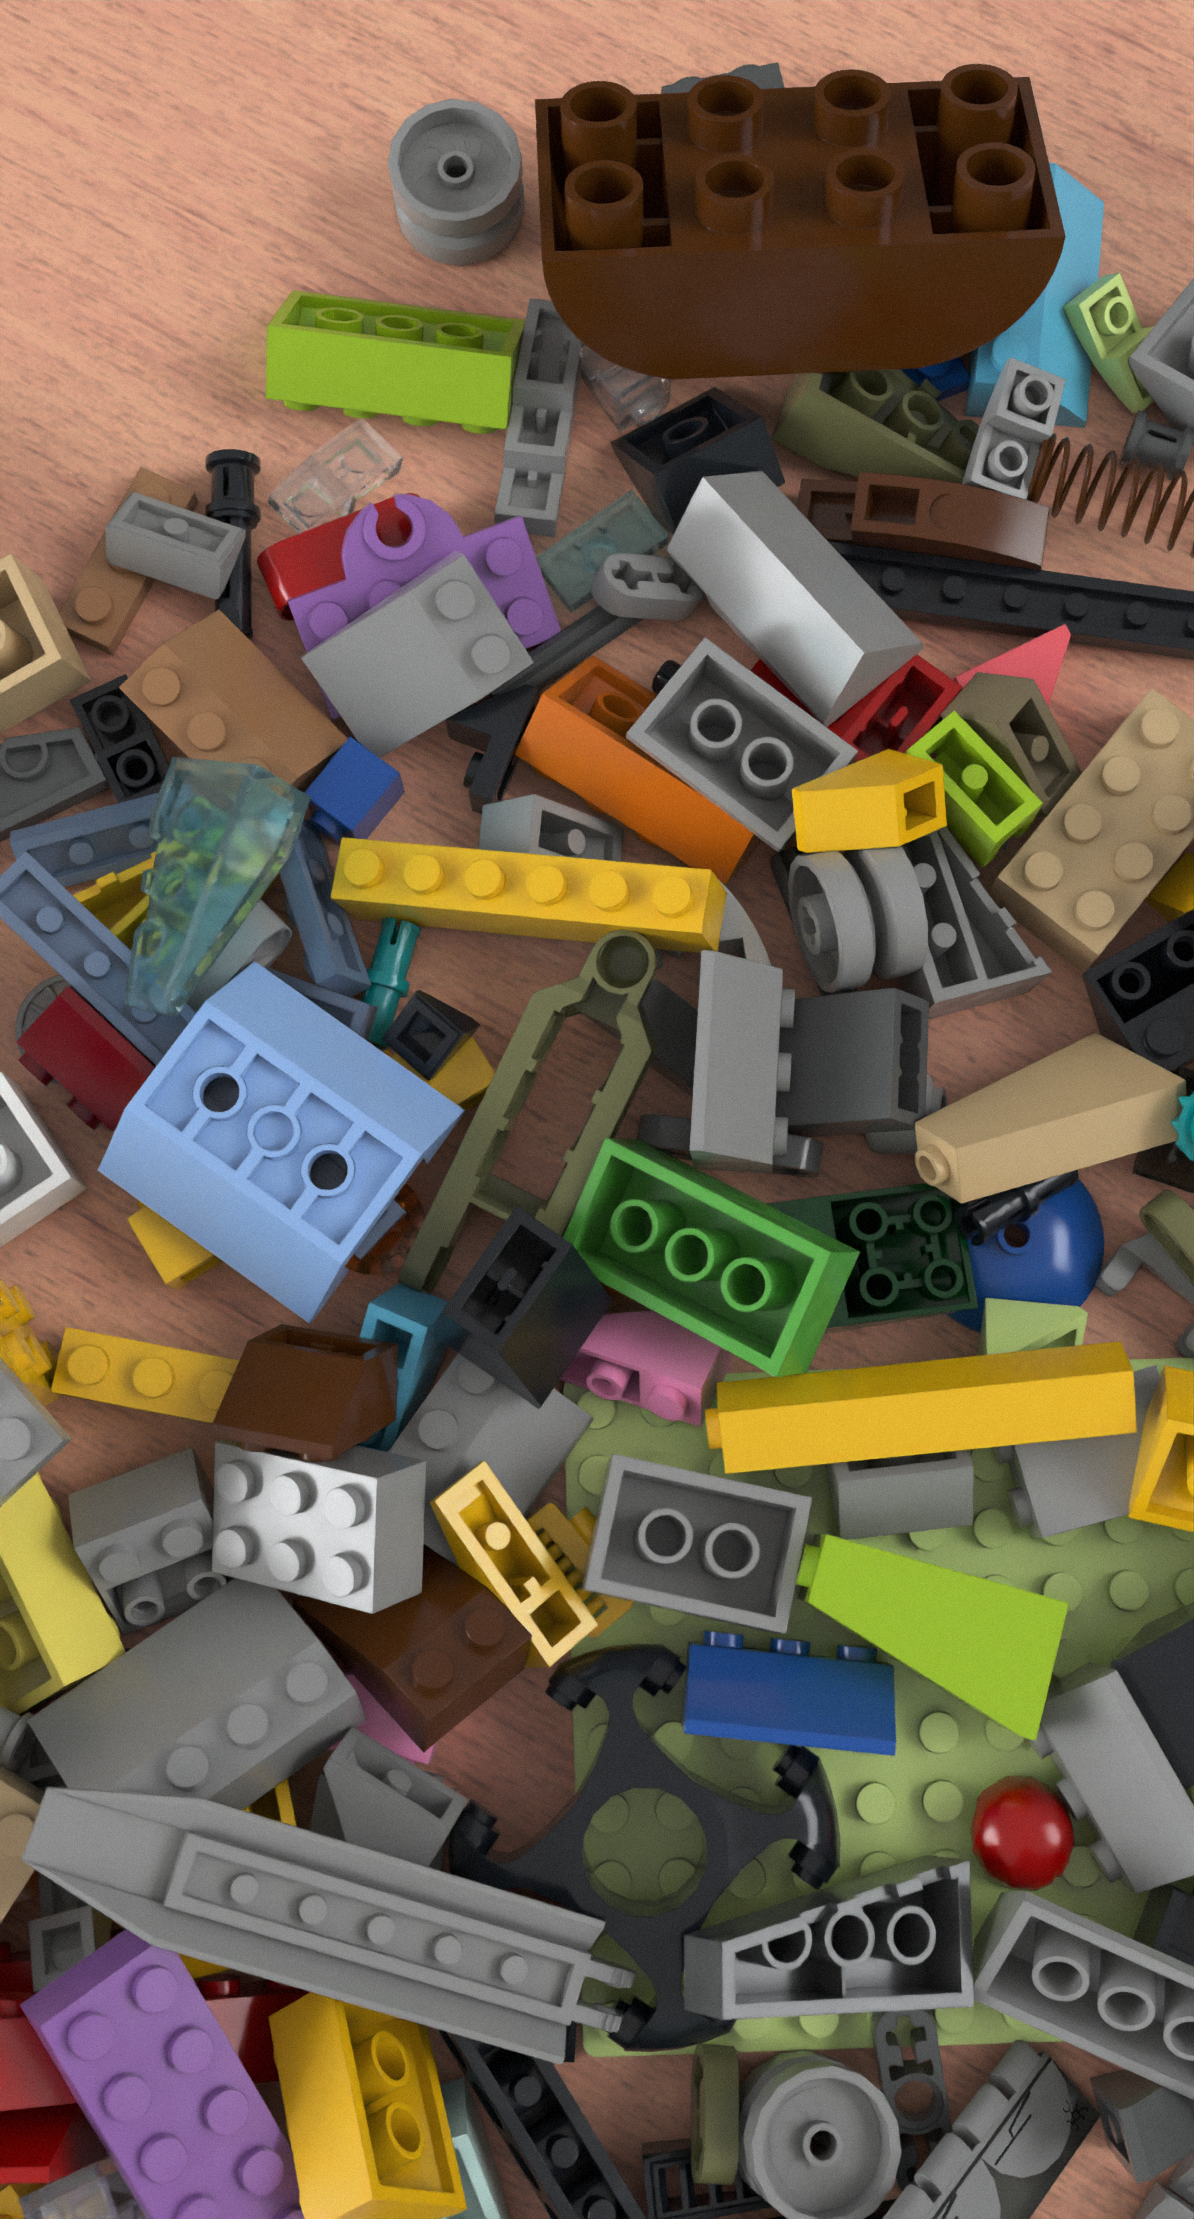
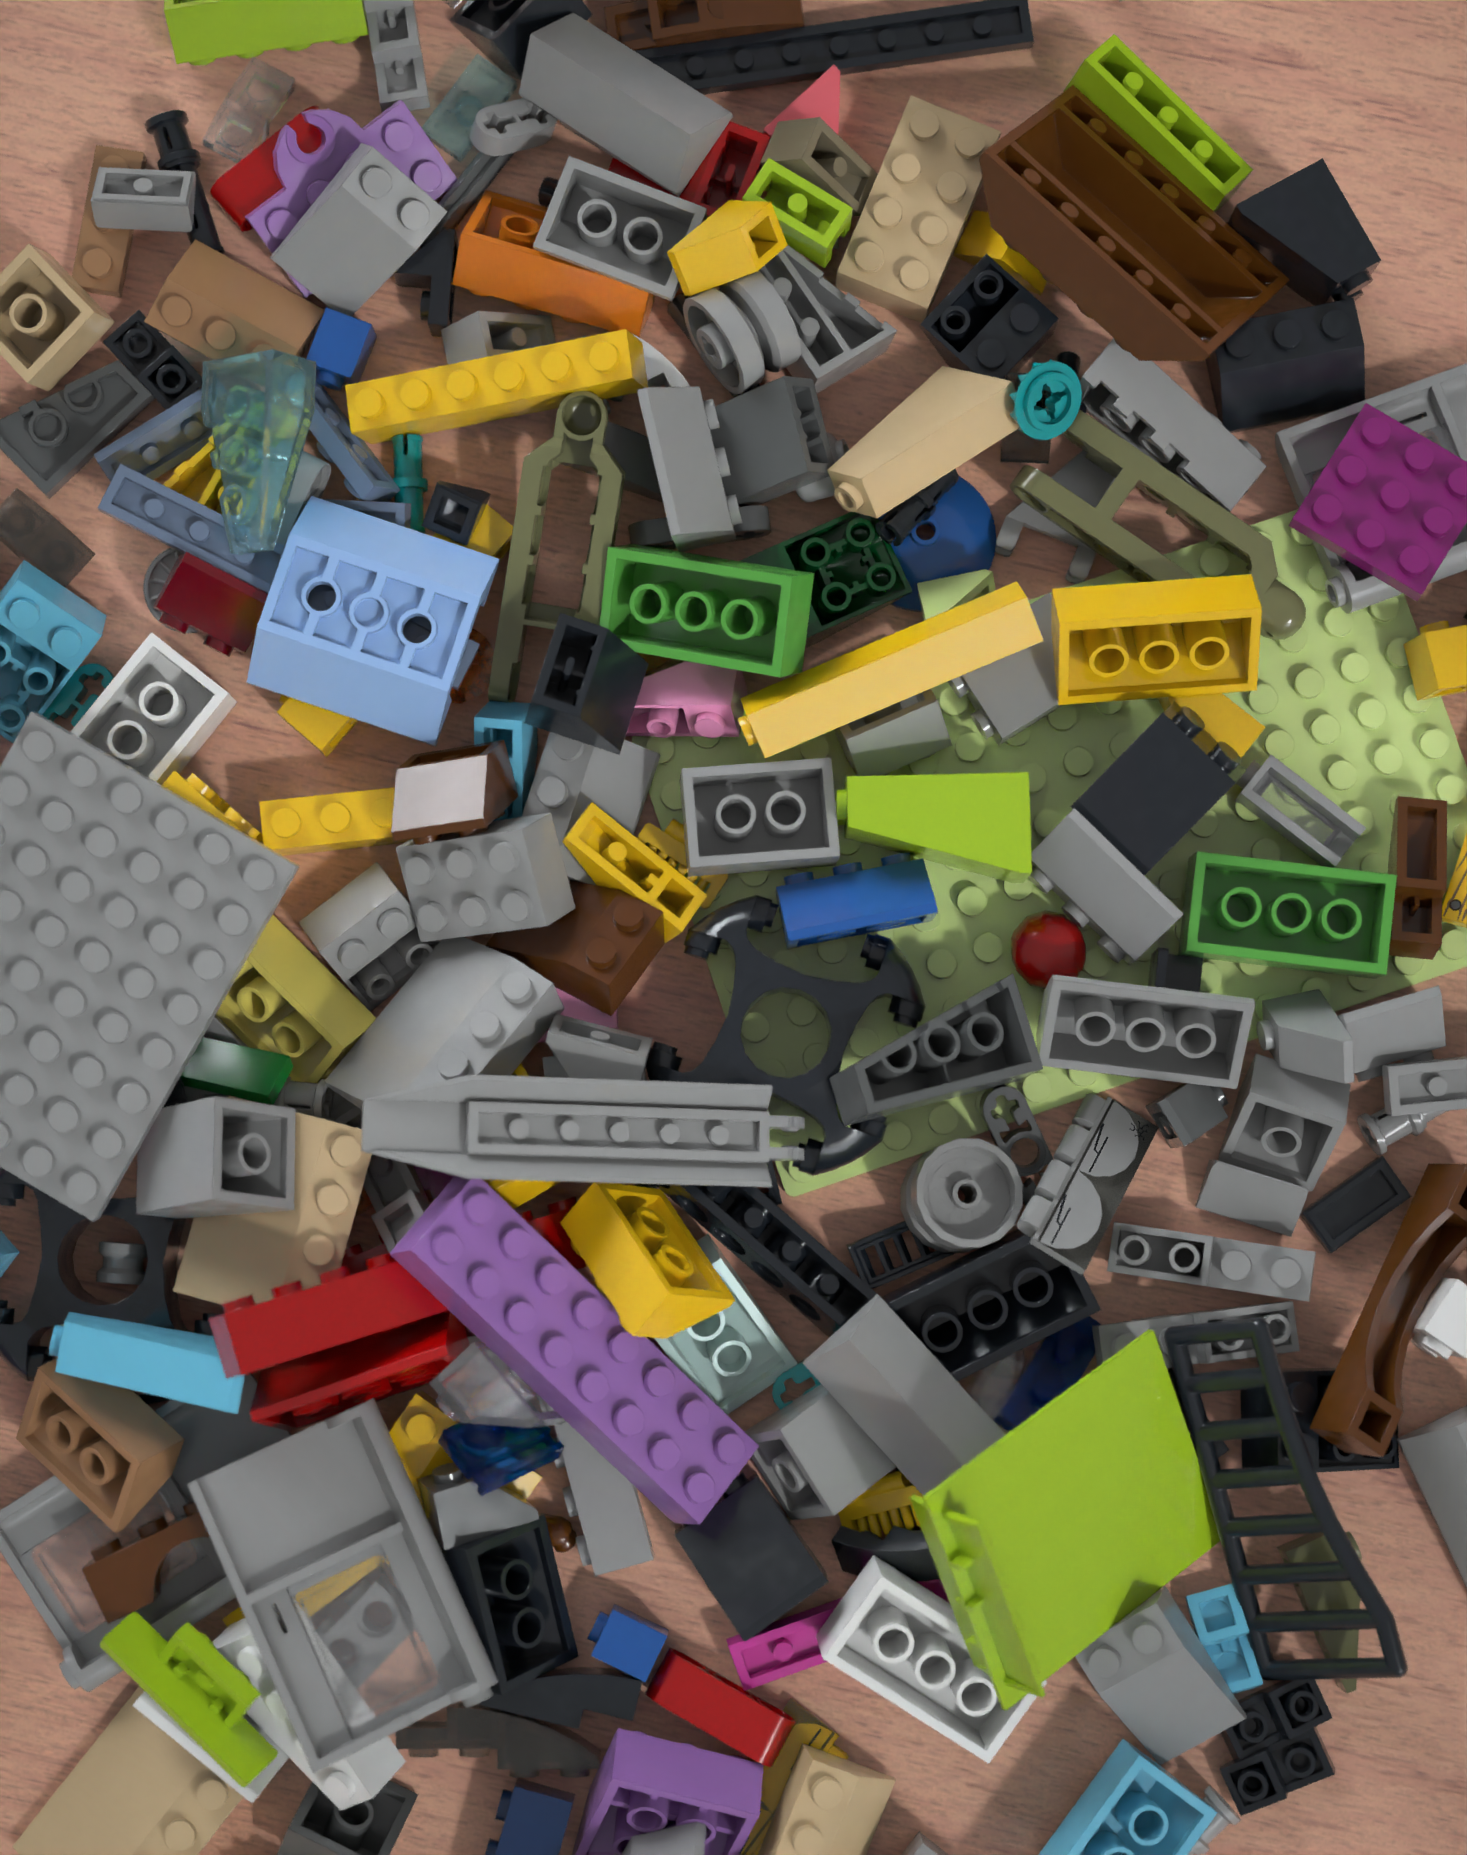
camera: 20 degrees left, 5 degrees up
(715, 2114) = (888, 1202): olive beam -> none

